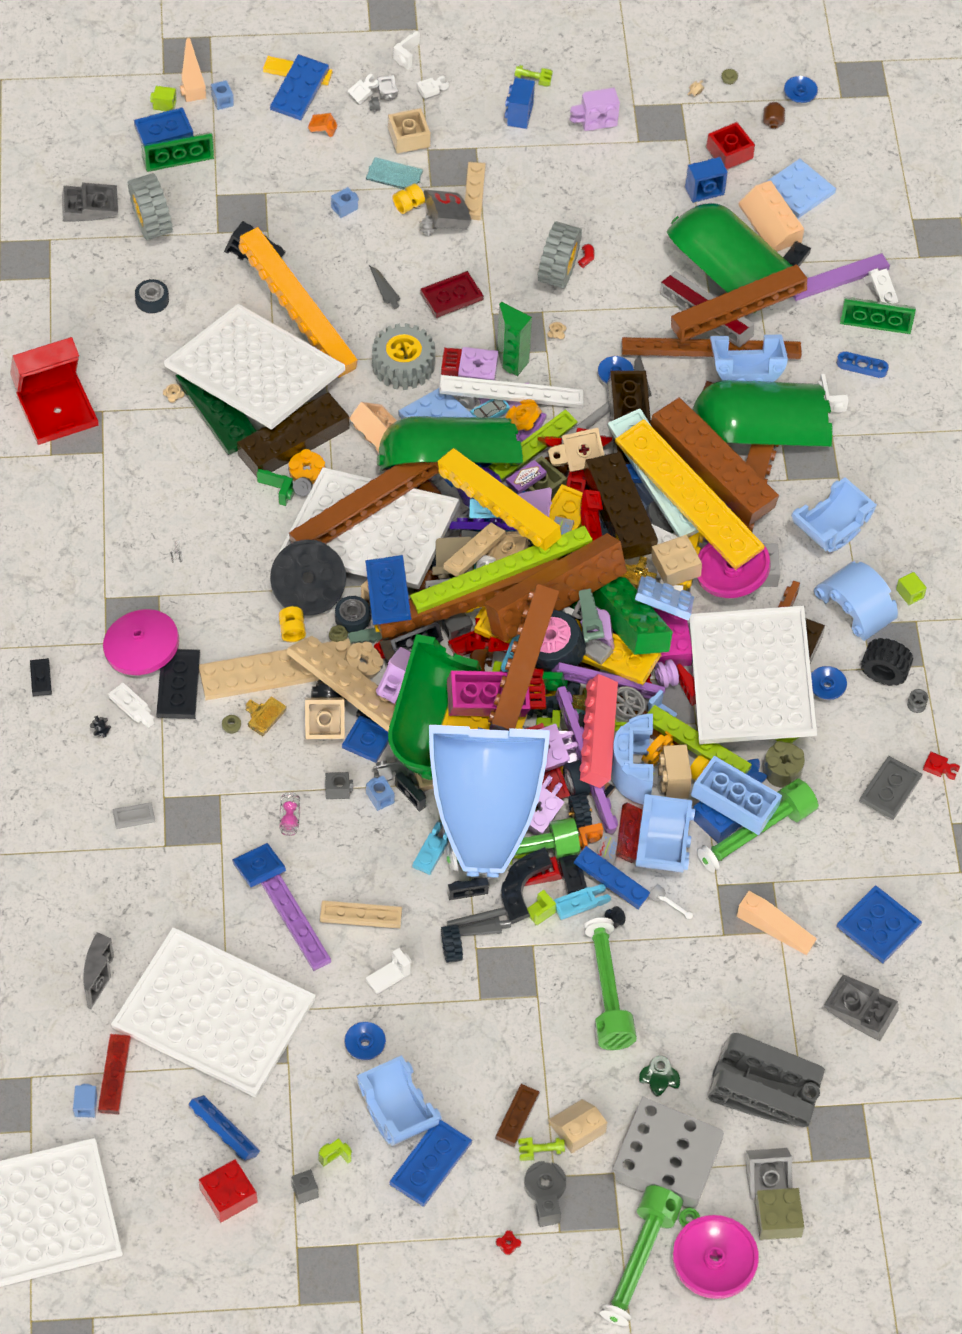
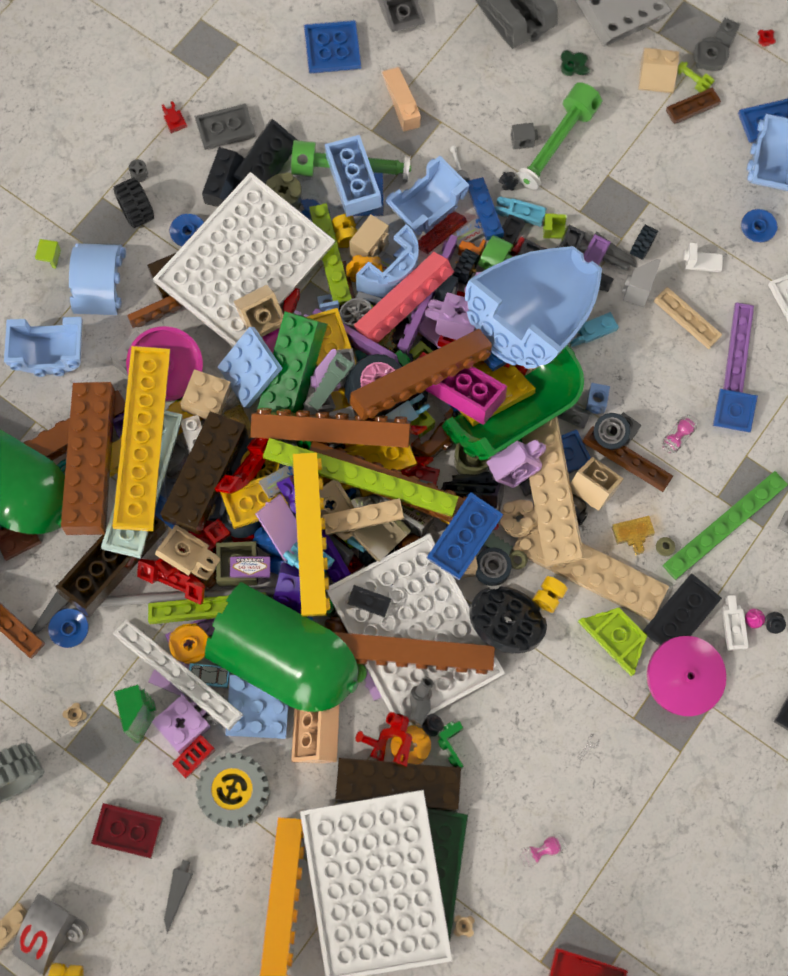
camera: 140 degrees left, 15 degrees up
(119, 721) = (754, 618): none -> dark pink plate
(151, 473) = (551, 846): none -> clear piece
(195, 776) = (725, 525): none -> bright green plate
(217, 635) = (617, 636): none -> lime wing
(315, 764) = (631, 462): none -> reddish brown plate
(321, 485) = (420, 701): none -> dark grey arm
(326, 458) = (398, 728): none -> red piece
(344, 760) = (604, 423): none -> wheel
(419, 510) = (369, 601): none -> black plate
(422, 902) = (640, 283): none -> light grey slope
(485, 908) = (596, 249): none -> medium lavender tile
(640, 967) = (523, 135): none -> dark grey brick
(699, 641) = (260, 310): none -> tan slope
(829, 781) = (267, 153): none -> black plate
(841, 745) = (220, 178): none -> black slope

